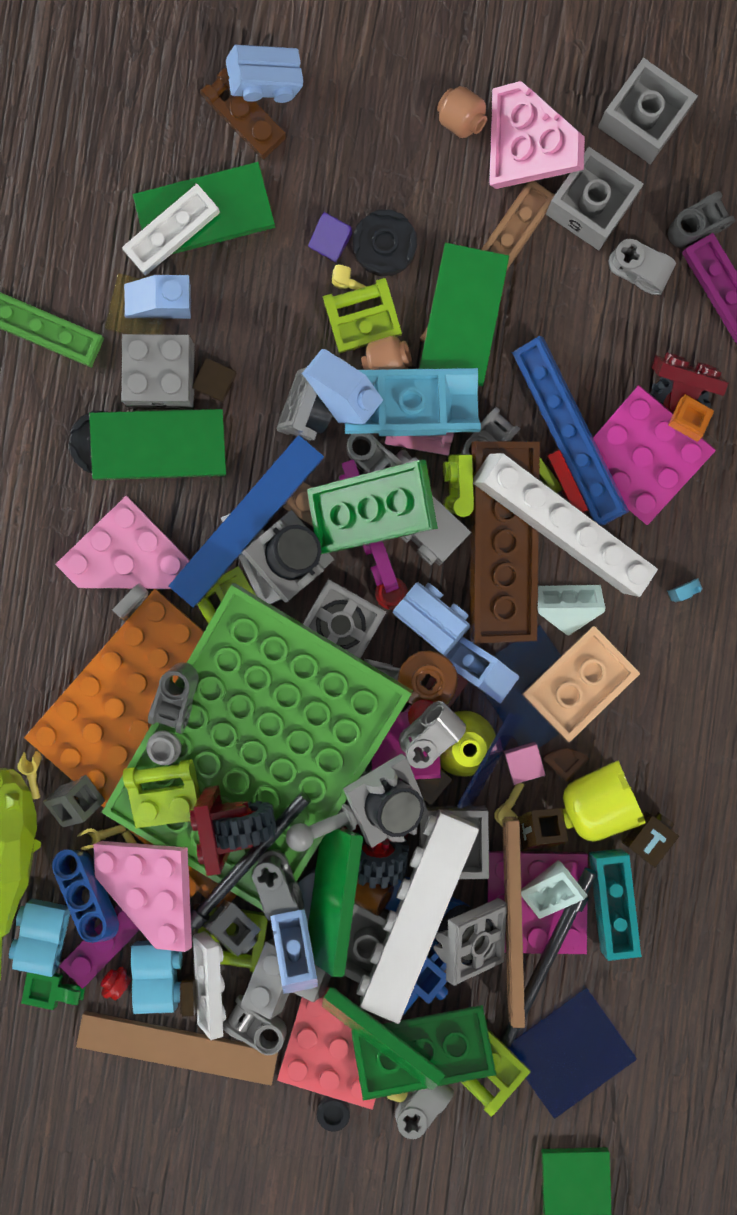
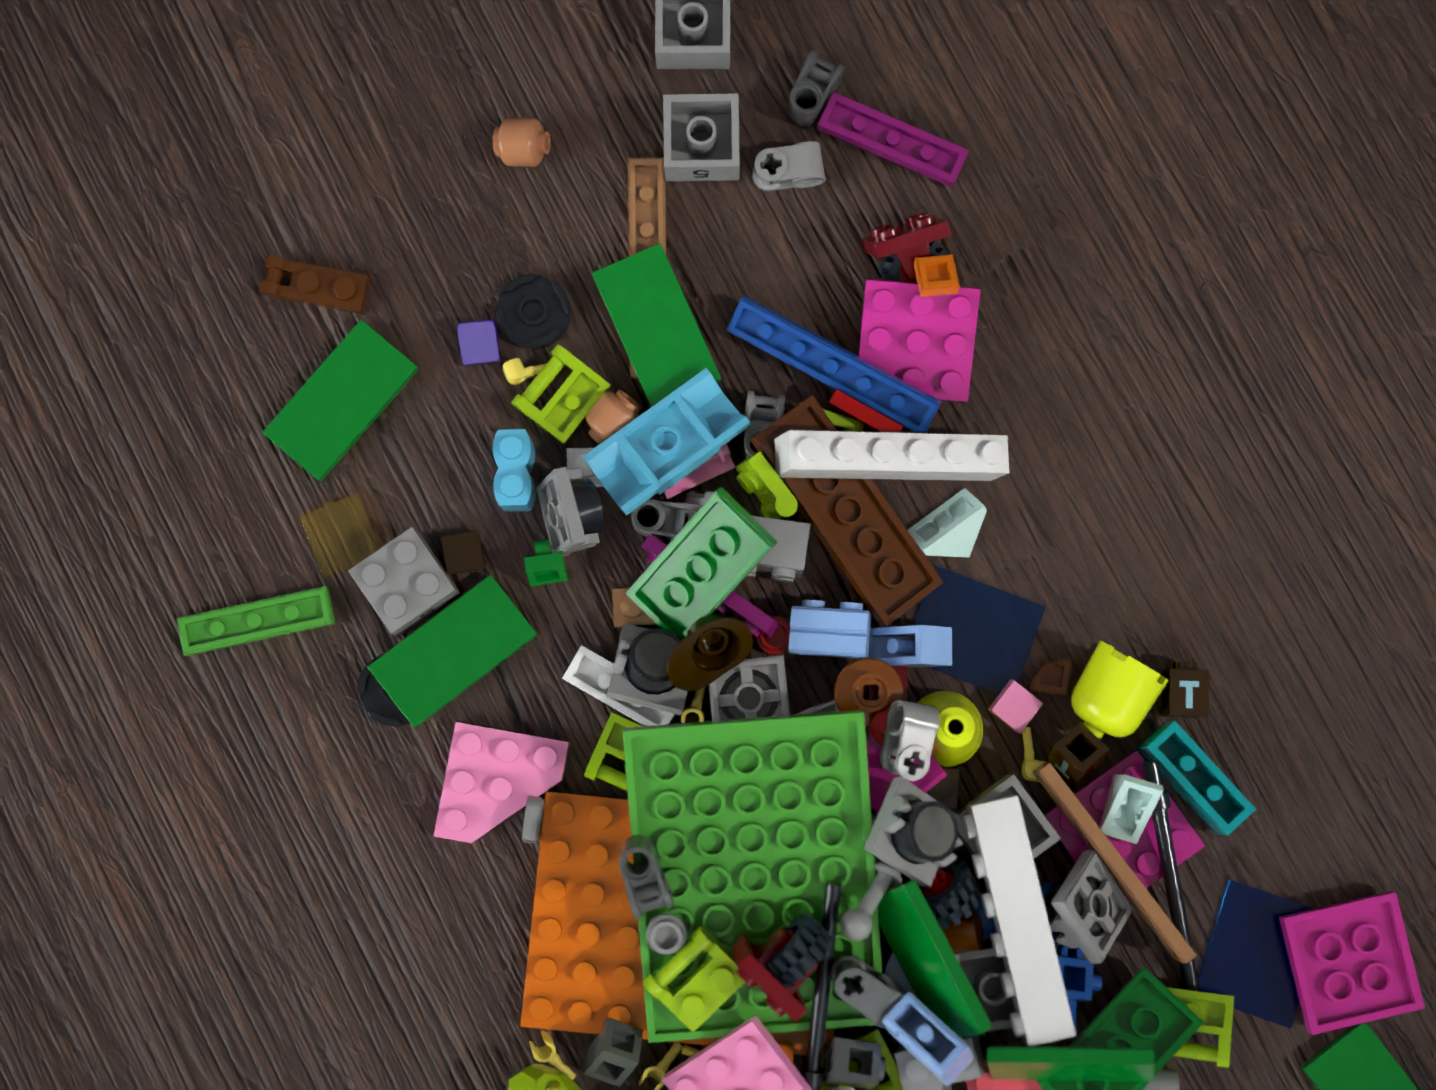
camera: 35 degrees left, 5 degrees down
(159, 297) = (355, 512): light blue slope -> none
(171, 229) = (324, 440): white plate -> none
(246, 521) = (589, 665): blue tile -> none
(264, 72) = (310, 234): light blue brick -> none
(265, 430) = (545, 566): none -> green tile
(284, 353) = (513, 482): none -> medium azure brick
(303, 602) = (696, 705): none -> light yellow hand
(334, 571) = (709, 651): none -> dark brown piece
(342, 388) = (595, 475): light blue slope -> none
(490, 760) = (981, 725): clear blue piece -> none
(530, 138) = (602, 124): bright pink plate -> none
(580, 684) = (1013, 593): light nougat plate -> none
(629, 1106) = (1351, 962): none -> dark pink plate
(685, 591) = (1047, 437): medium azure tile -> none

